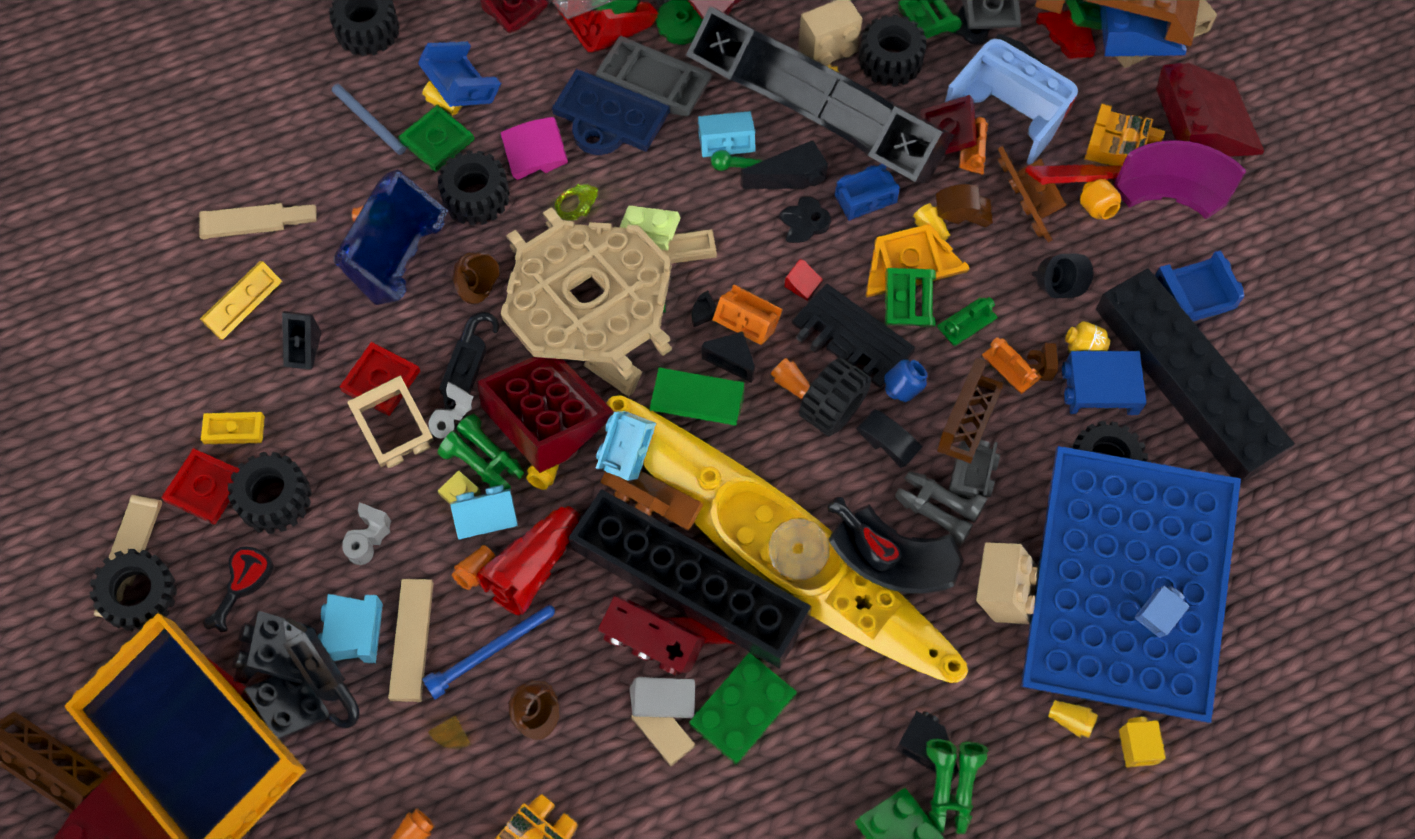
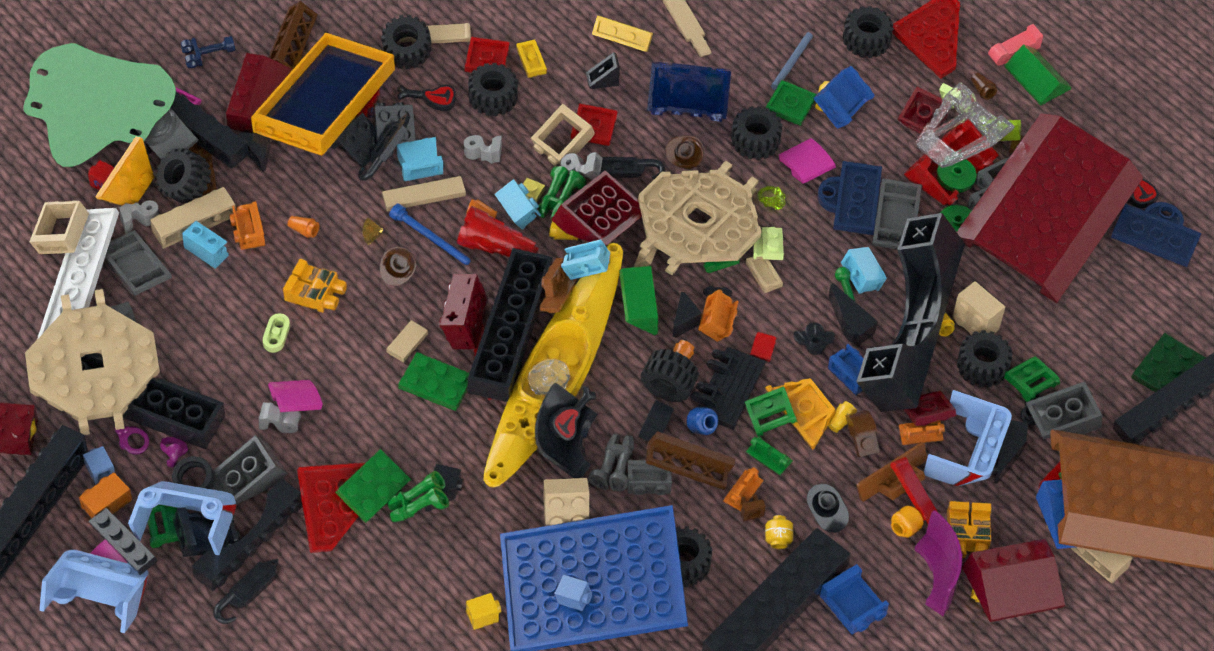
camera: 70 degrees right, 10 degrees down
(662, 697) = (426, 331): light grey slope -> none
(1074, 718) = (488, 570): yellow cone -> none
(1104, 380) = (749, 548): blue panel -> none

